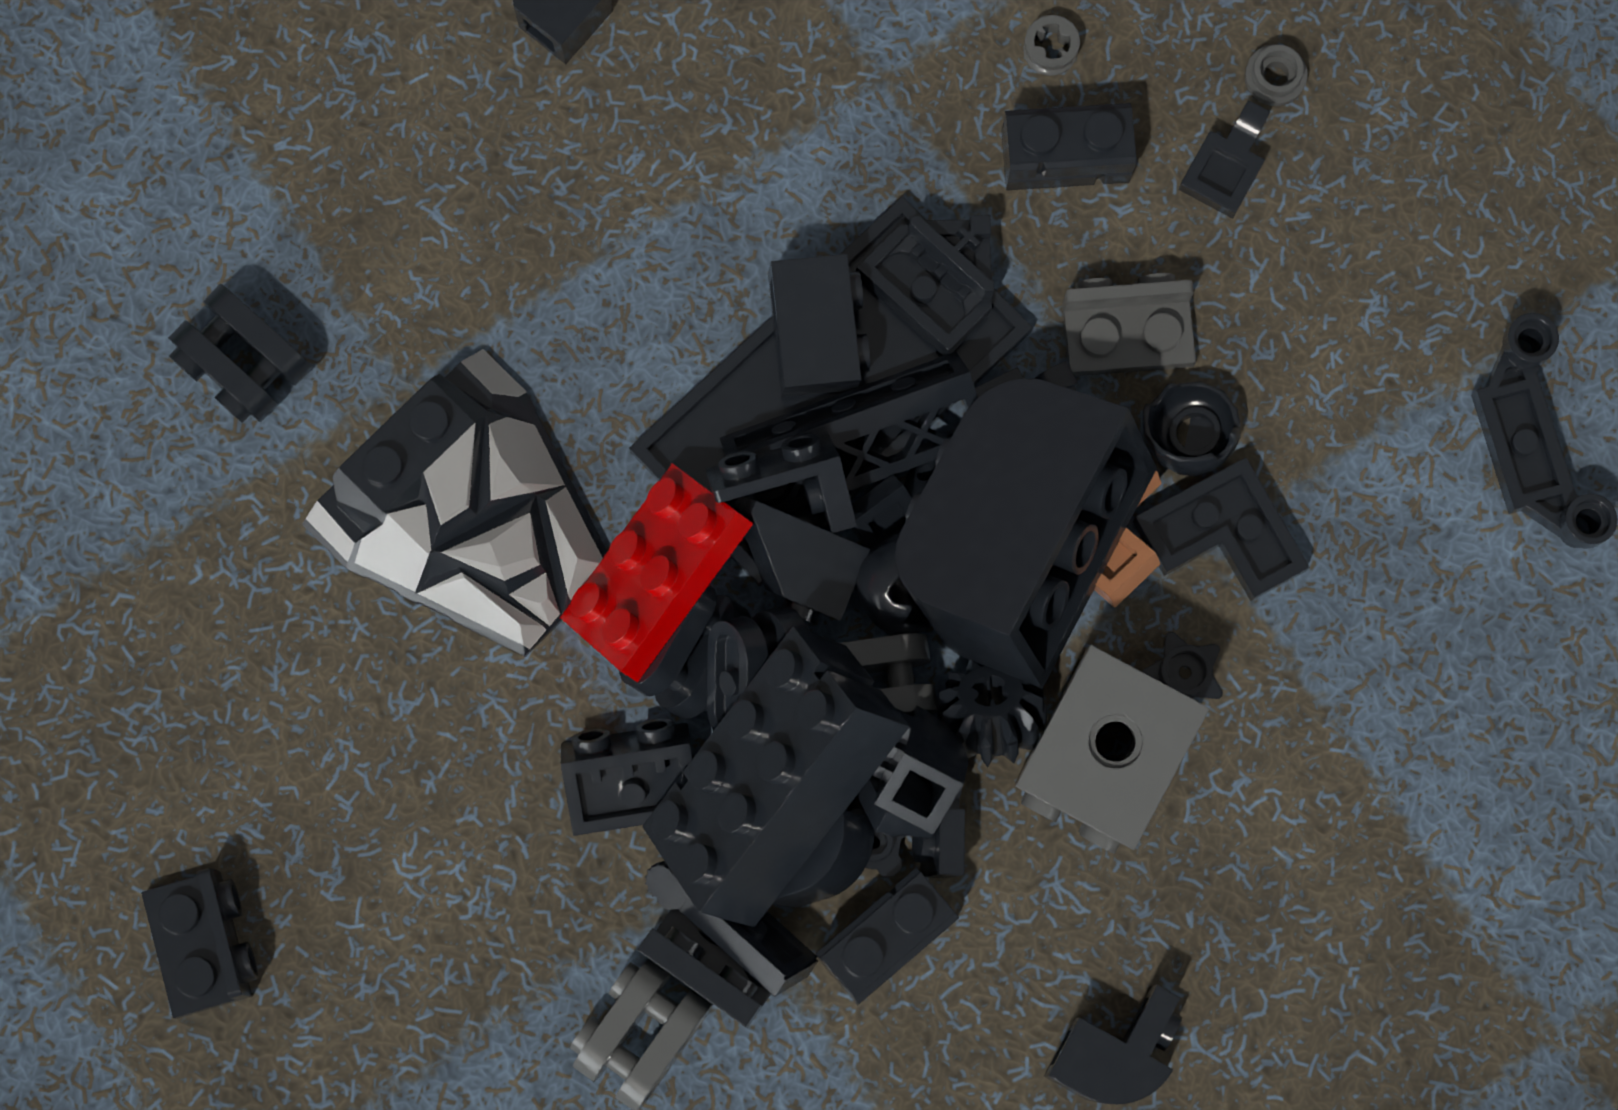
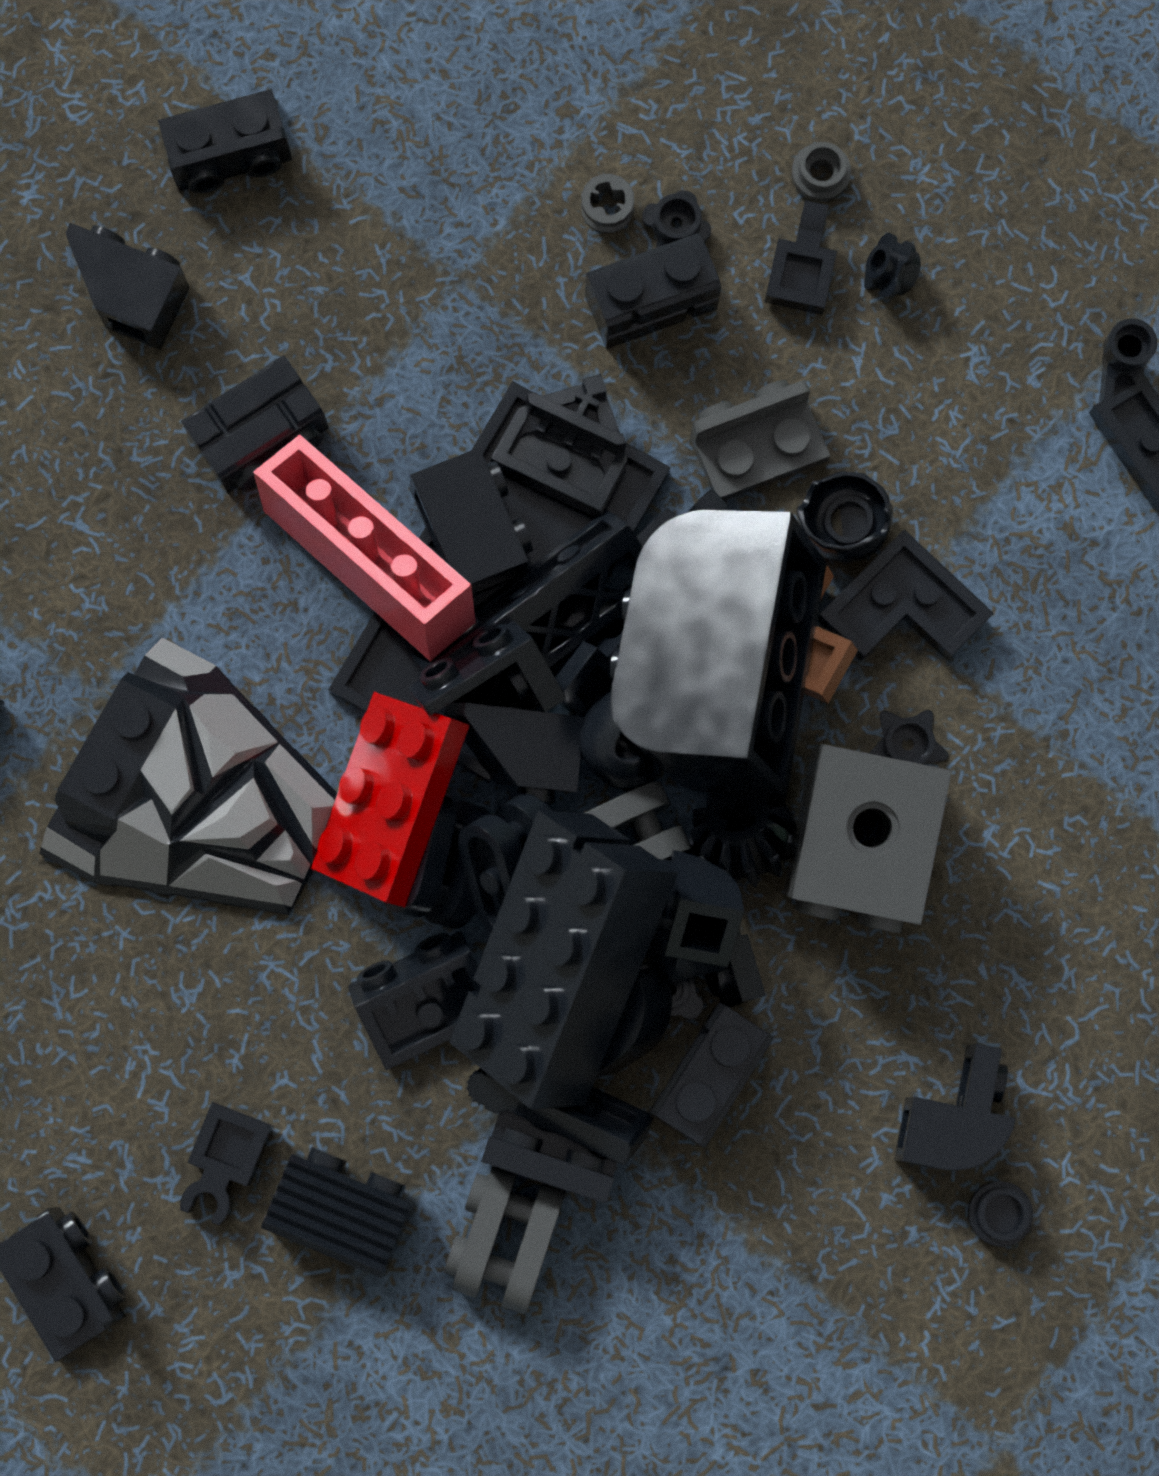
camera: 20 degrees left, 0 degrees up
(398, 867) = (228, 1151): none -> black plate
(486, 958) = (339, 1212): none -> black brick
(637, 168) = (255, 423): none -> black brick
(706, 320) = (366, 547): none -> coral brick
(1120, 68) = (675, 206): none -> black plate
(1316, 191) = (892, 267): none -> black plate

